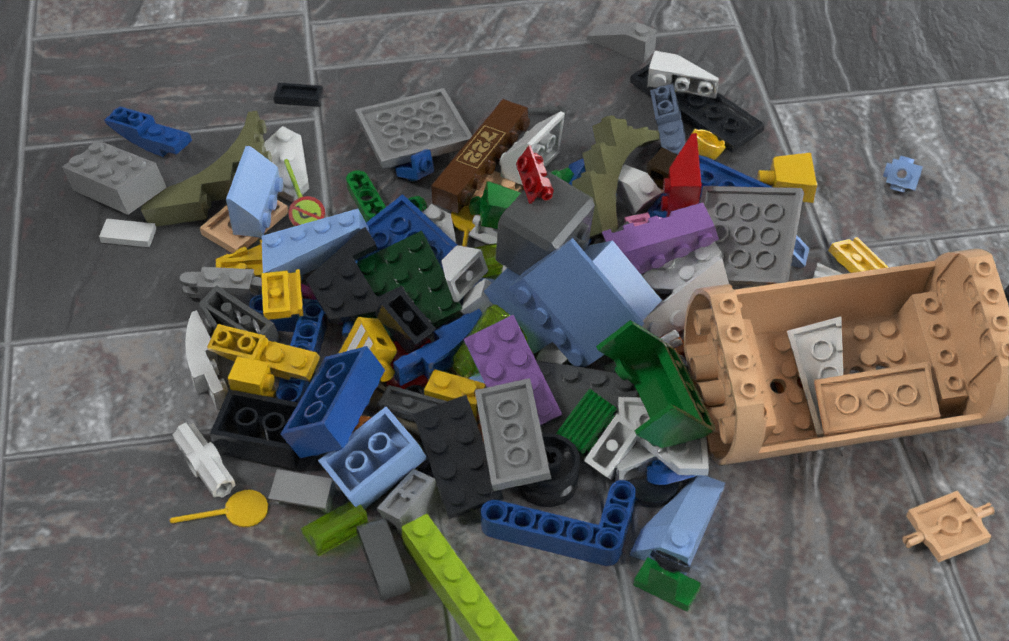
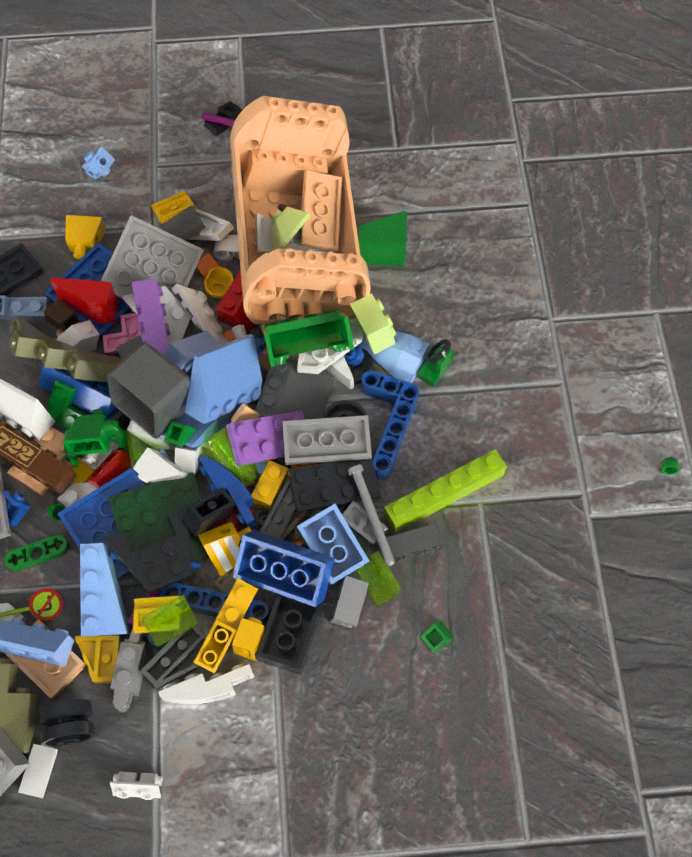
camera: 85 degrees left, 15 degrees up
(99, 320) = (125, 785): none -> white hinge
(166, 238) = (66, 723): none -> black wheel
(203, 460) = (310, 681): white piece -> none
(242, 509) = (355, 650): yellow piece -> none
(258, 600) = (437, 636): none -> green slope
(269, 299) = (170, 621): none -> clear neon green panel
(417, 495) = (356, 472): none -> light grey bar
(463, 236) = (110, 468): none -> red slope
(501, 275) = (178, 433): none -> green slope
(532, 175) = (121, 378): red hinge -> none
(540, 346) = (244, 413): none -> light nougat tile
(587, 421) = (311, 394): green brick -> none
(612, 446) = (336, 380): white slope -> none
(693, 471) = (375, 326): none -> yellowish green brick
(709, 144) = (35, 286): yellow hair -> none
(821, 263) = (184, 224): none -> dark grey tile
(821, 350) = (286, 225): none -> yellowish green slope
(861, 497) = (384, 240): none -> green slope
(948, 526) = (403, 197): light nougat plate -> none

